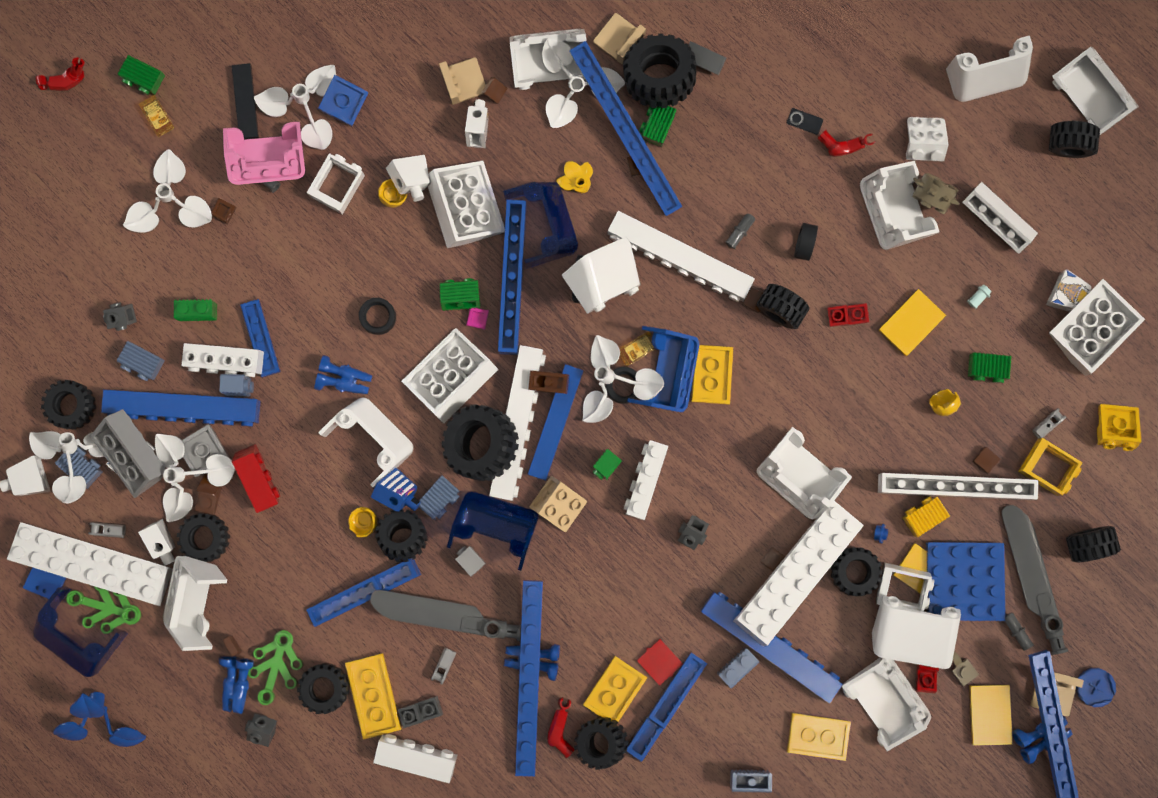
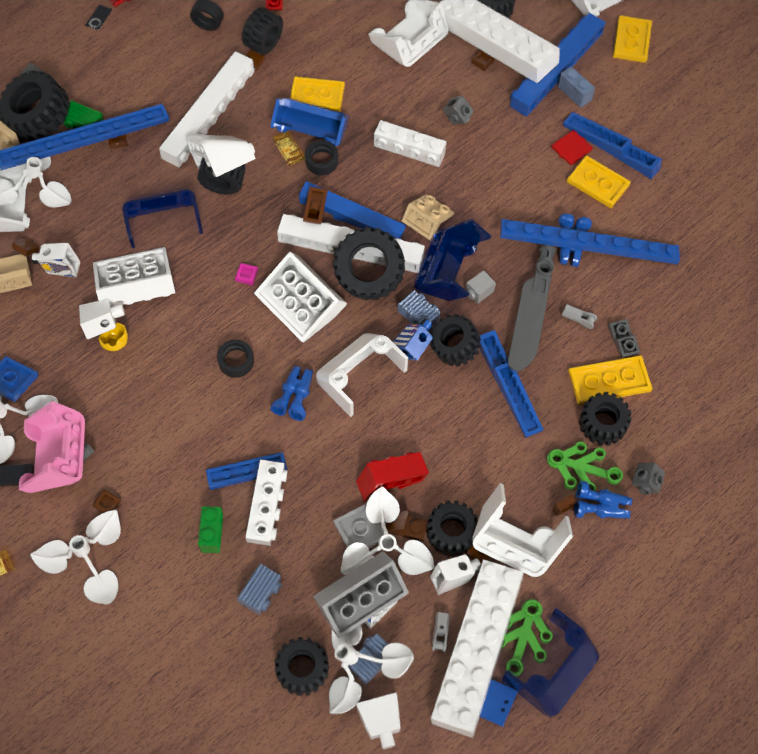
camera: 90 degrees left, 20 degrees down
(90, 707) = (637, 641): blue plant -> none
(119, 316) = (216, 608): dark grey brick -> none
(182, 407) = (312, 550): blue brick -> none
(236, 385) = (295, 487): sand blue brick -> none
(339, 161) = (110, 399): white window -> none
(362, 521) = (440, 377): yellow hair -> none
(415, 758) = (668, 340): white brick -> none
(459, 294) = (222, 283): green brick -> none
(512, 277) = (211, 237): blue brick -> none
(556, 729) = (634, 222): red arm -> none
(574, 175) = (119, 187): yellow plate -> none
(587, 749) = (654, 174): black tyre -> none
(606, 353) = (292, 171): white plant -> none
(606, 465) = (394, 169): green brick -> none
(740, 231) = (190, 65): dark grey axle -> none
(750, 781) = (673, 81): sand blue brick -> none

